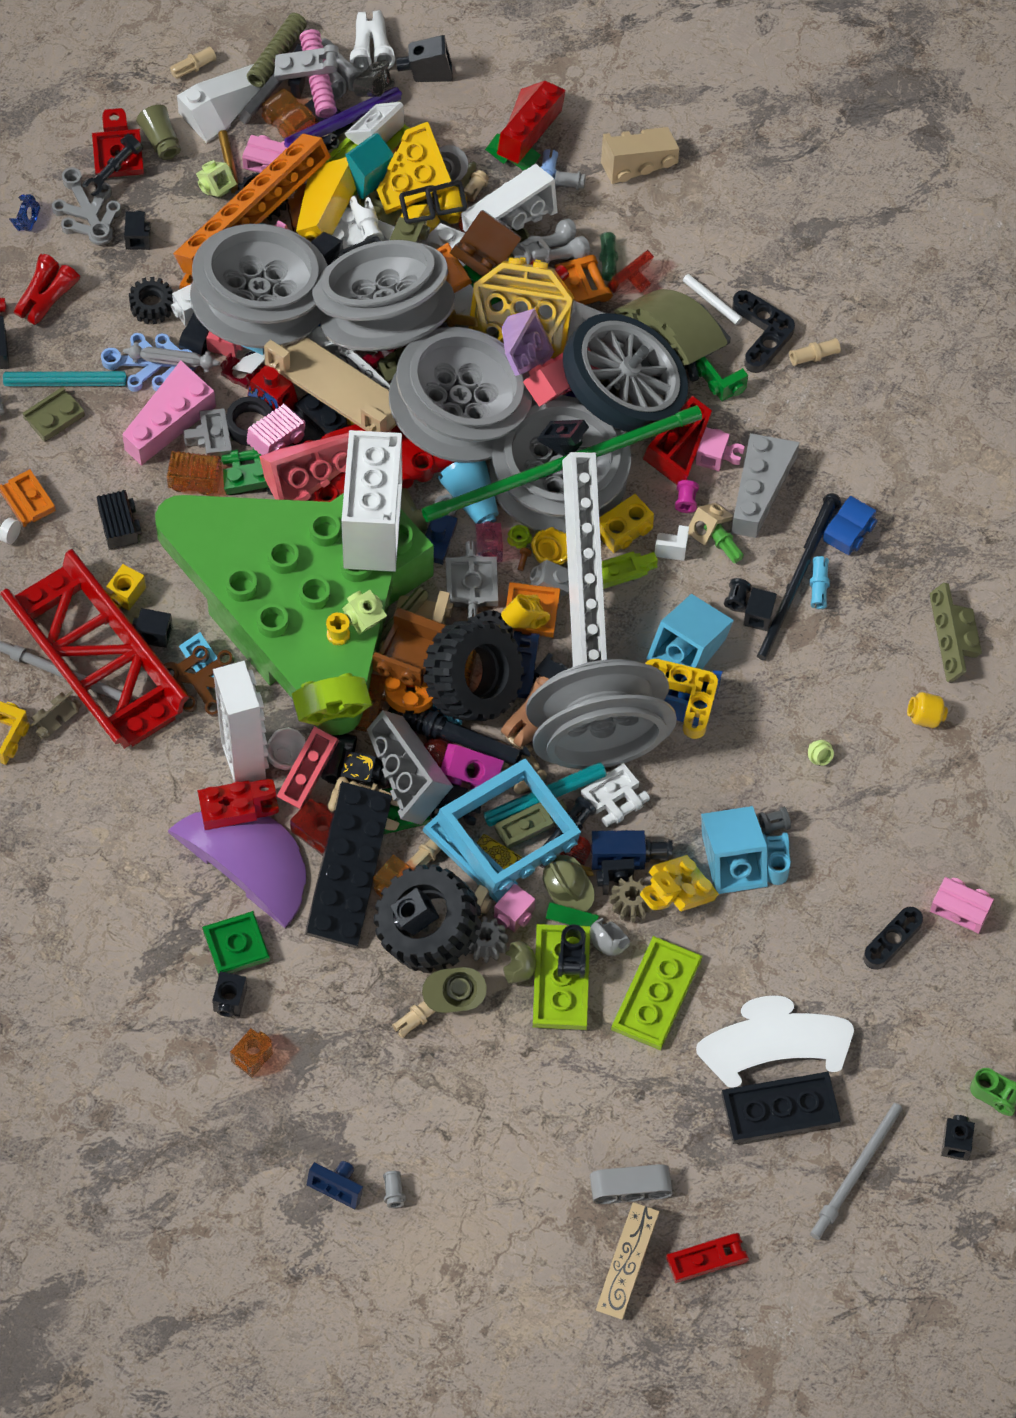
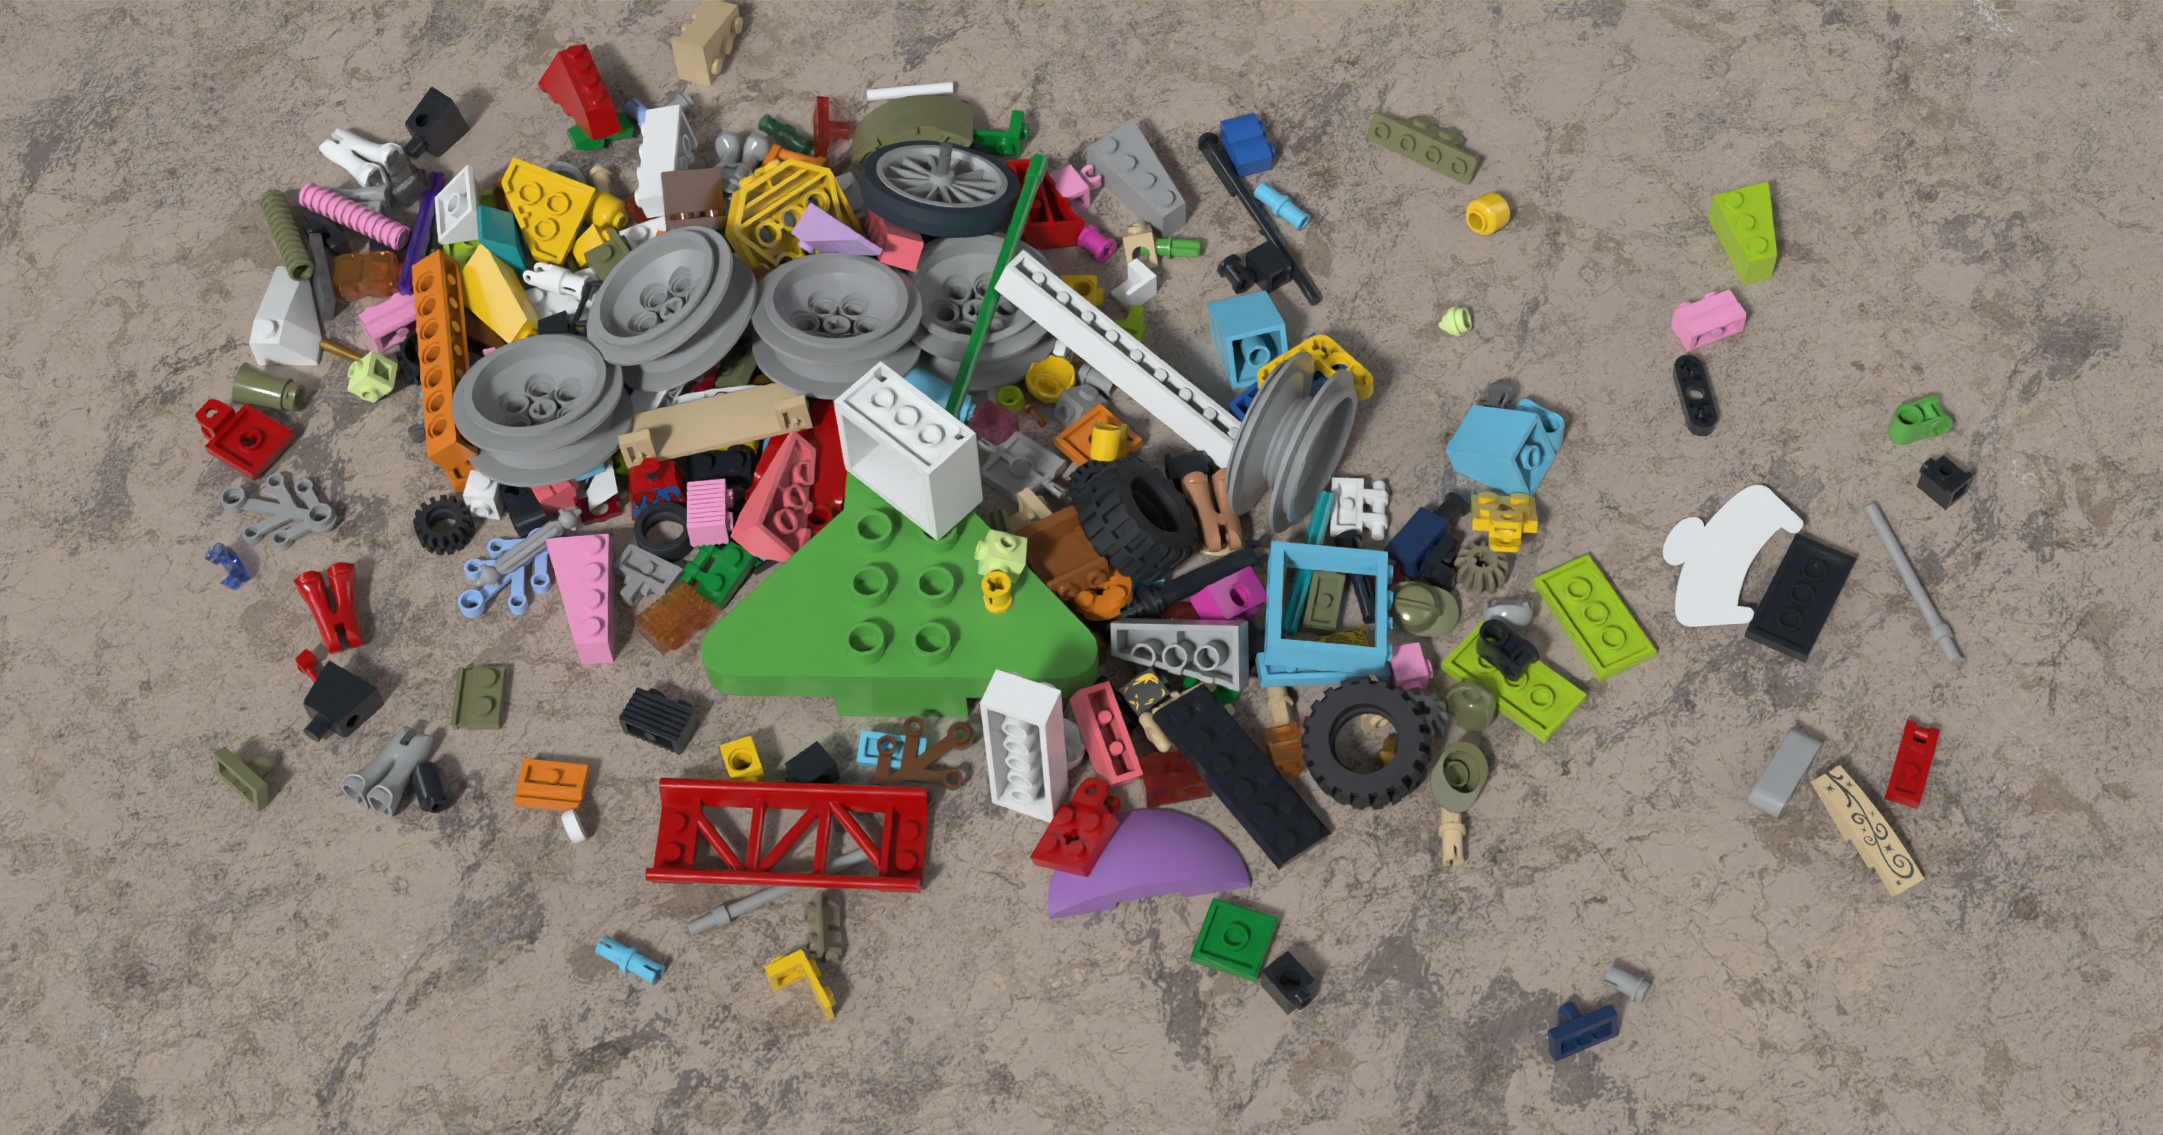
camera: 45 degrees left, 5 degrees down
(65, 378) = (449, 661): teal axle -> none
(132, 146) = (261, 419): black piece -> none
(137, 231) = (354, 483): black brick -> none
(193, 62) = (220, 313): tan axle -> none
(251, 1062) = (1370, 1020): clear orange brick -> none
(306, 63) = (338, 212): light grey plate -> none
(331, 699) = (1071, 648): lime brick -> none
(422, 917) = (1360, 726): black brick -> none
(427, 189) = (620, 210): black piece -> none
(563, 435) = (967, 270): black slope -> none
(569, 916) = (1453, 631): green piece -> none
(771, 331) = (987, 69): black beam -> none
(814, 351) = (1042, 53): tan pin -> none

